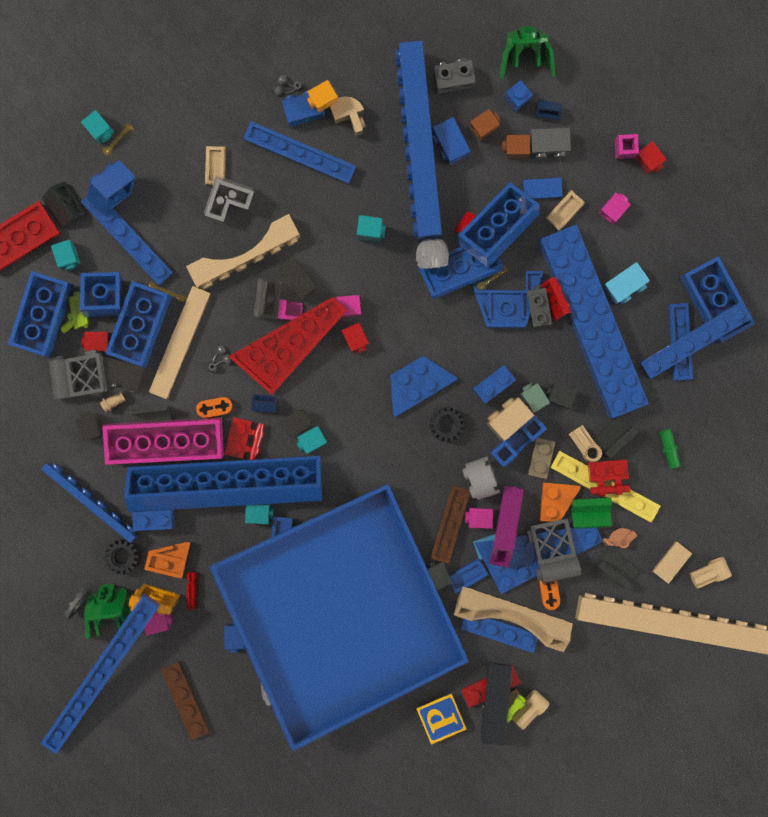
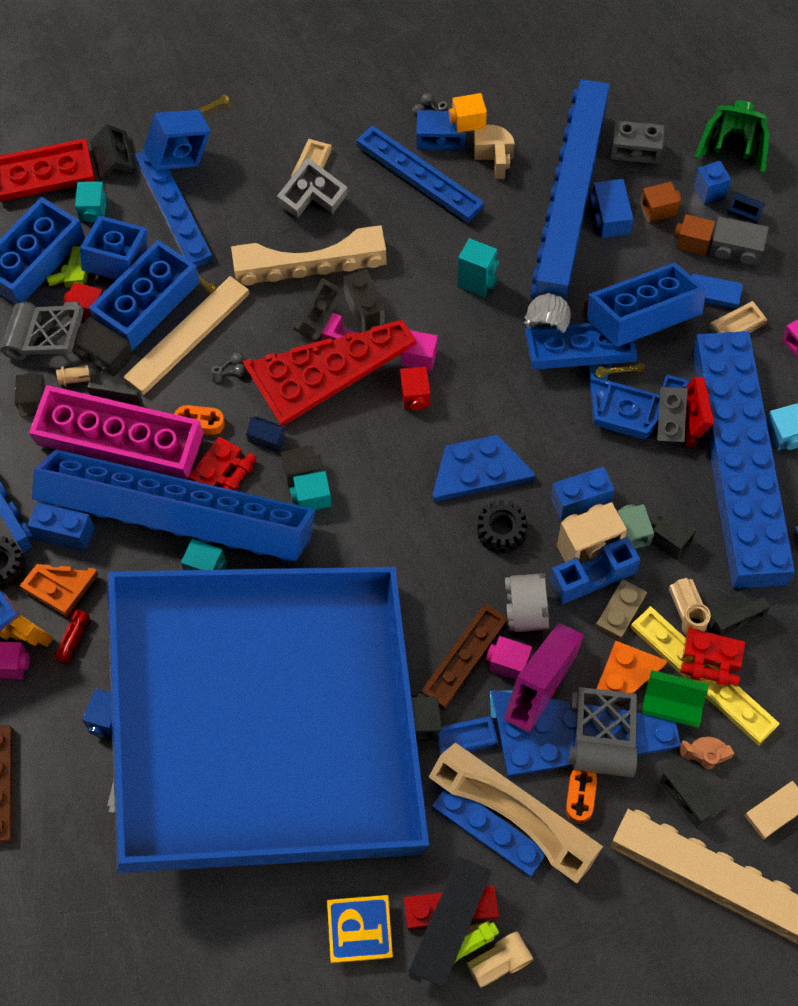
camera: 15 degrees right, 25 degrees down
(97, 127) = (188, 86): teal brick -> none

